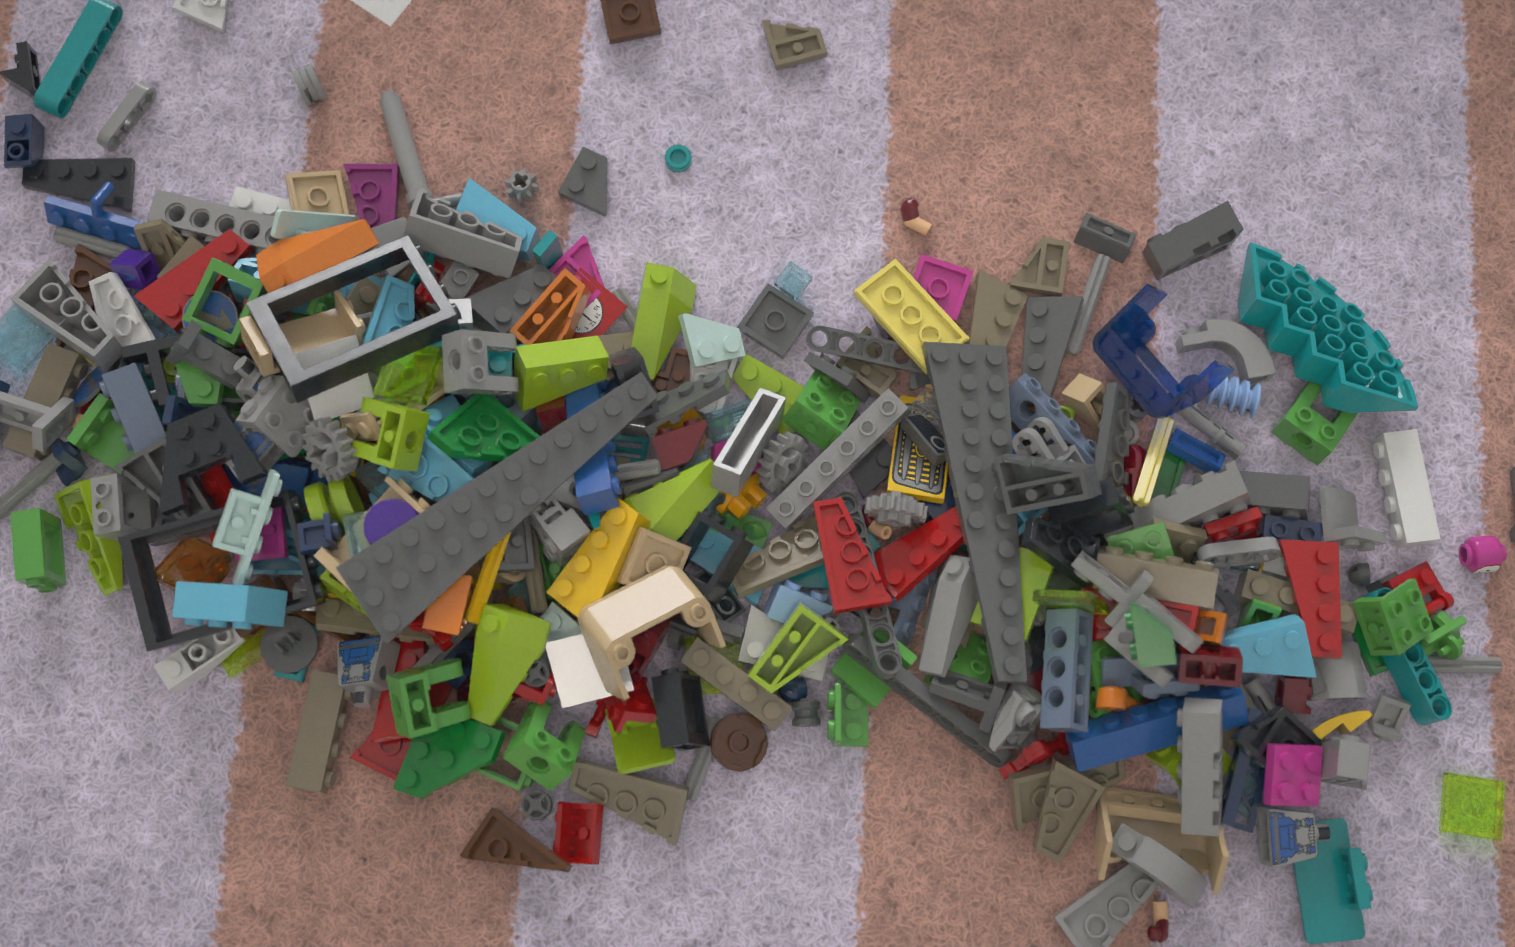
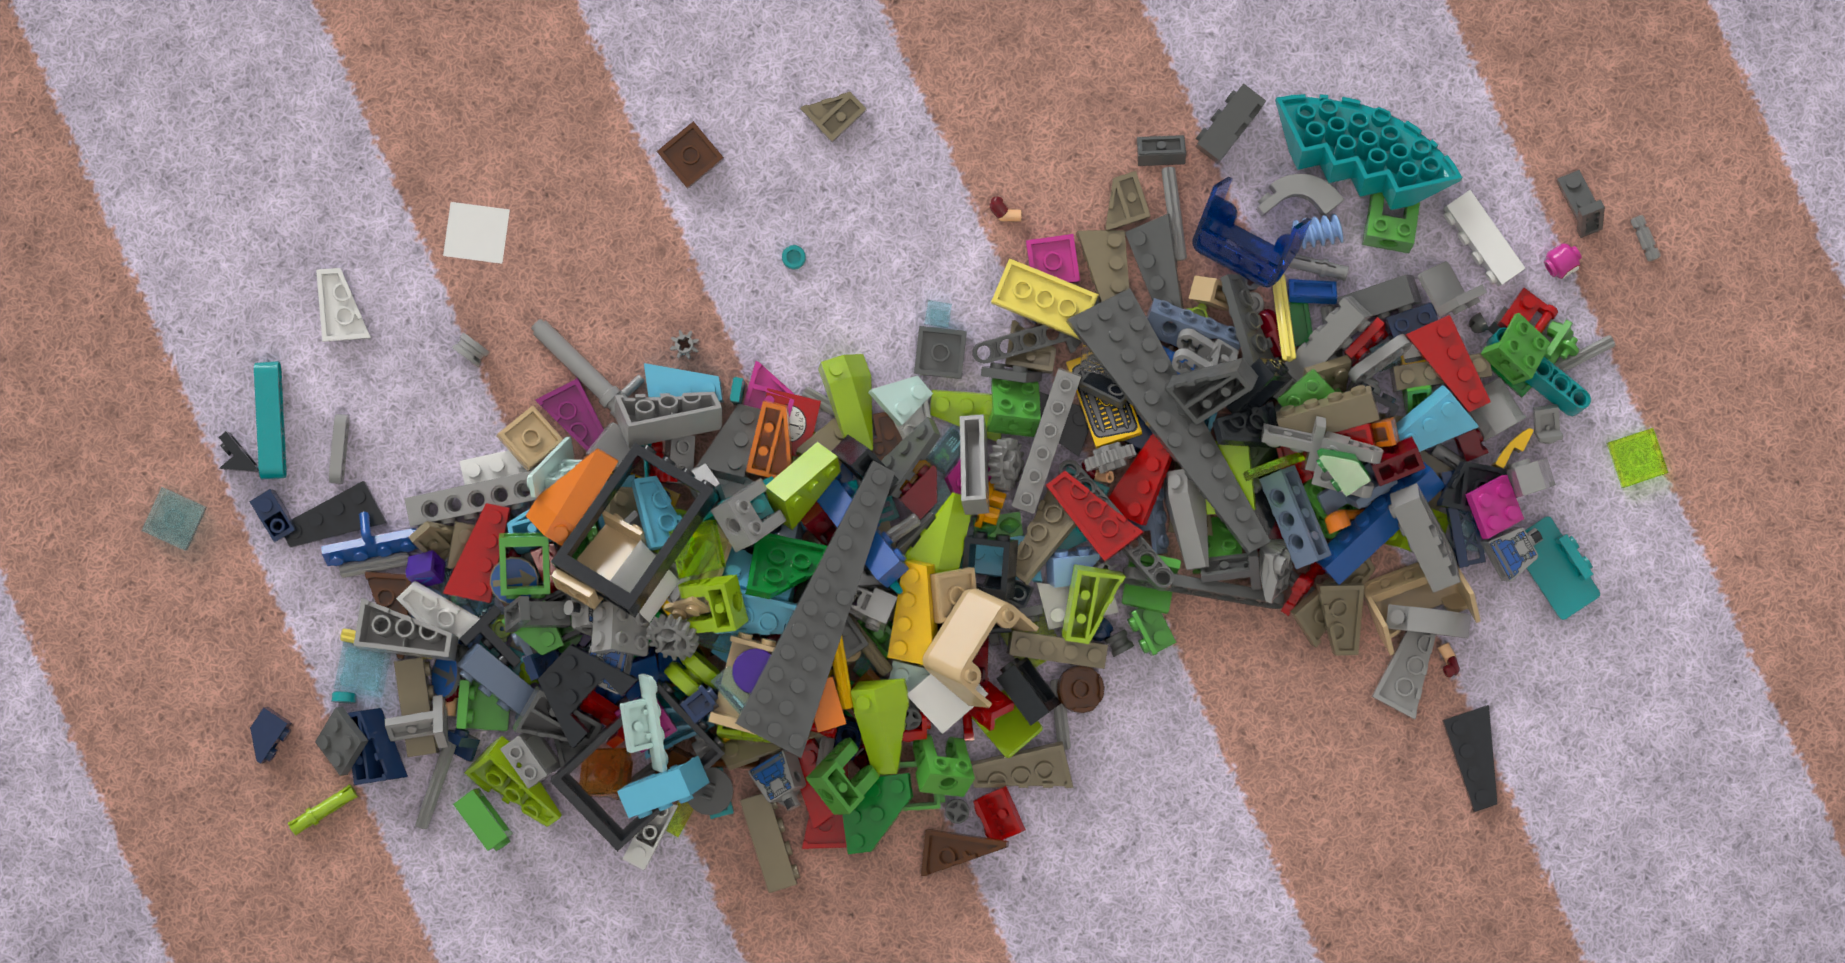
camera: 25 degrees left, 10 degrees up
(587, 182) = (733, 313): dark grey wing -> none

